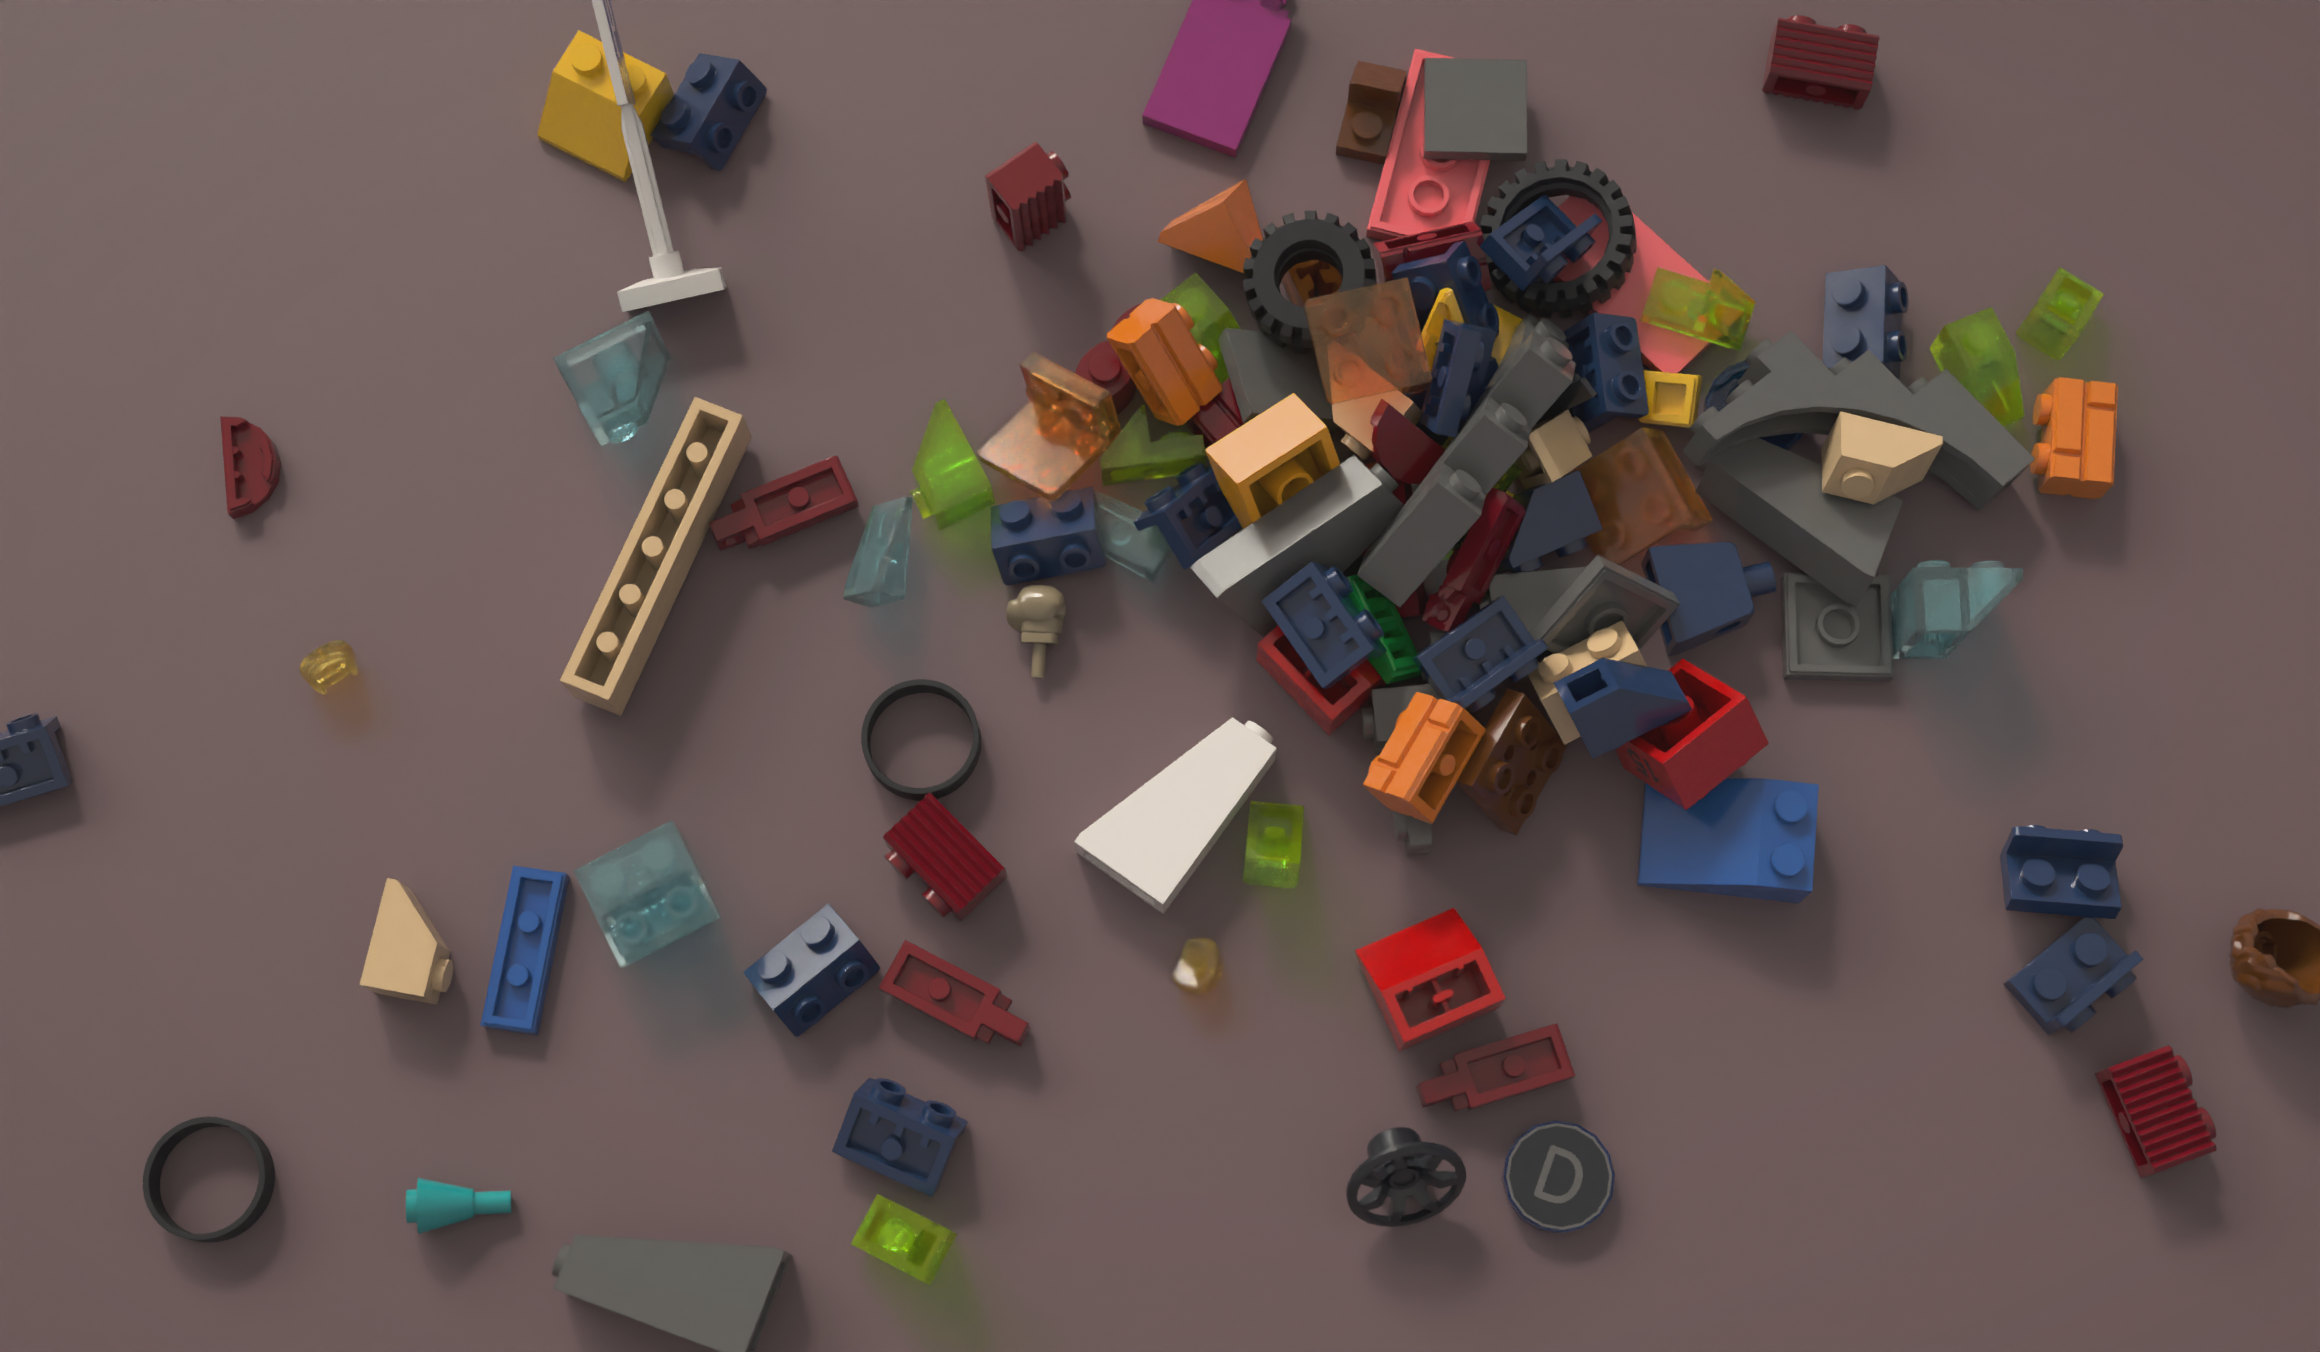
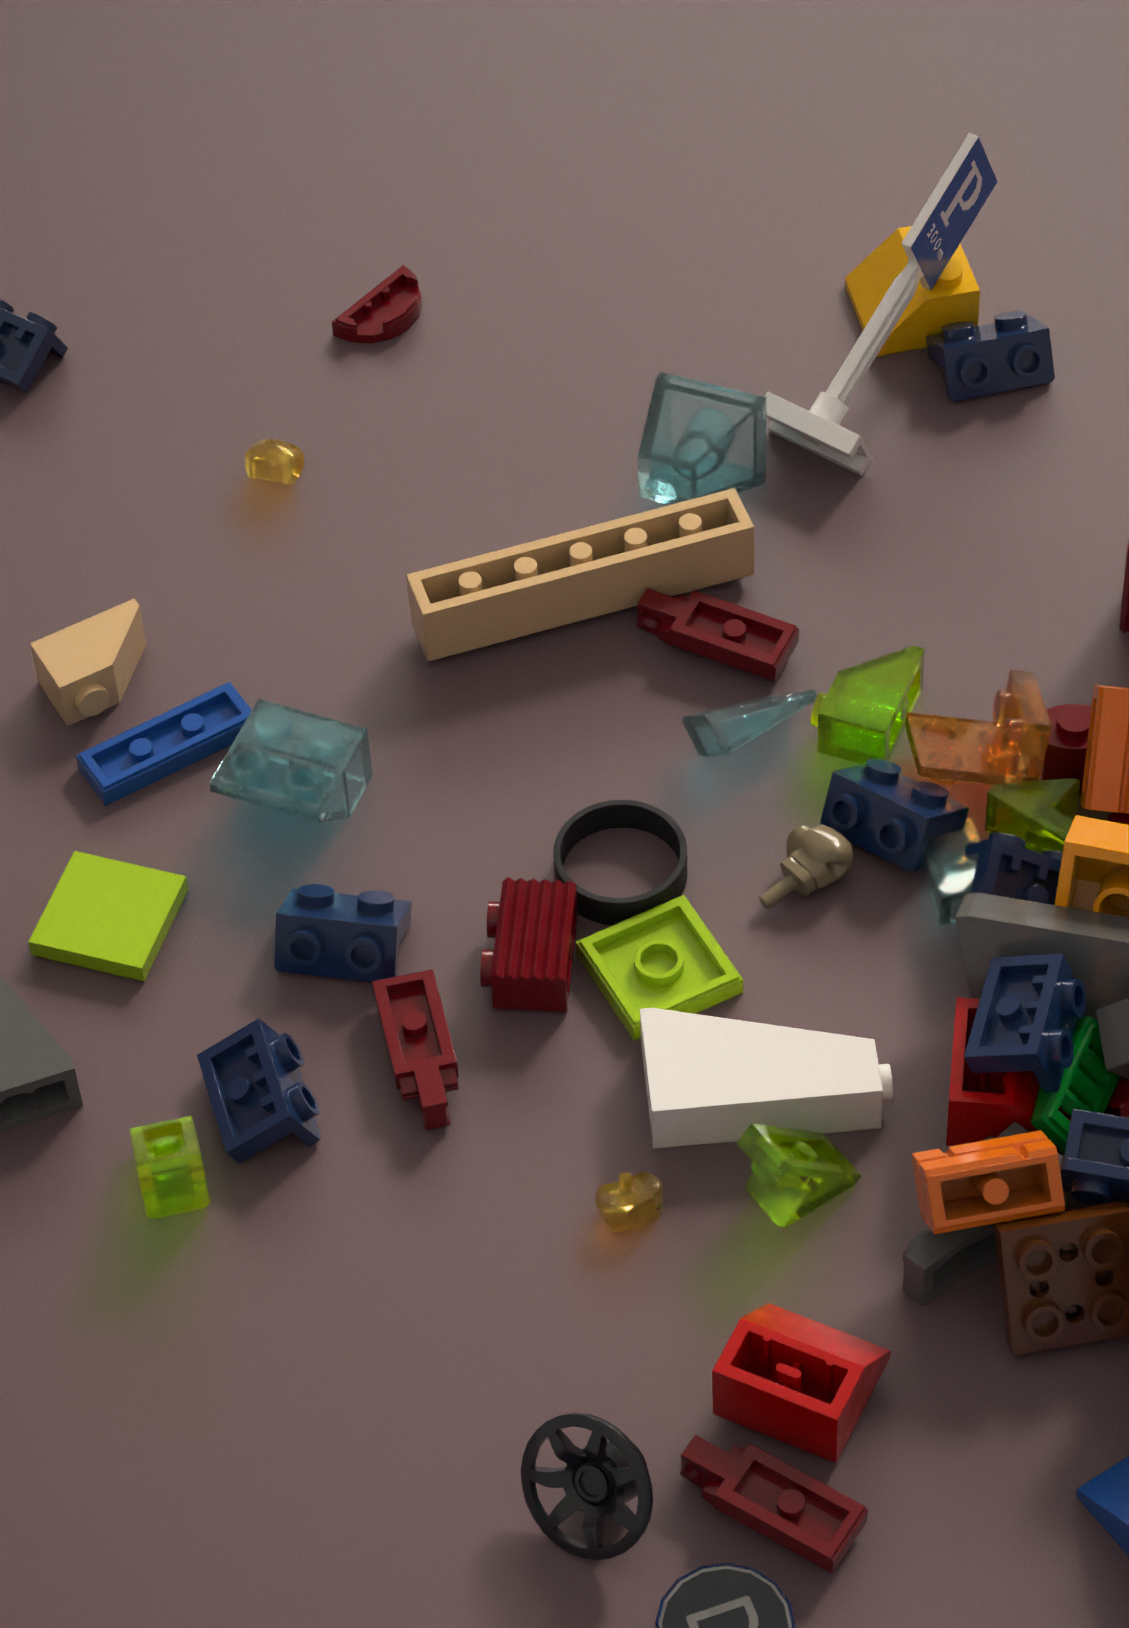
camera: 50 degrees right, 25 degrees down
(647, 1113) = (108, 916): none -> lime tile
(1027, 788) = (659, 962): none -> lime tile

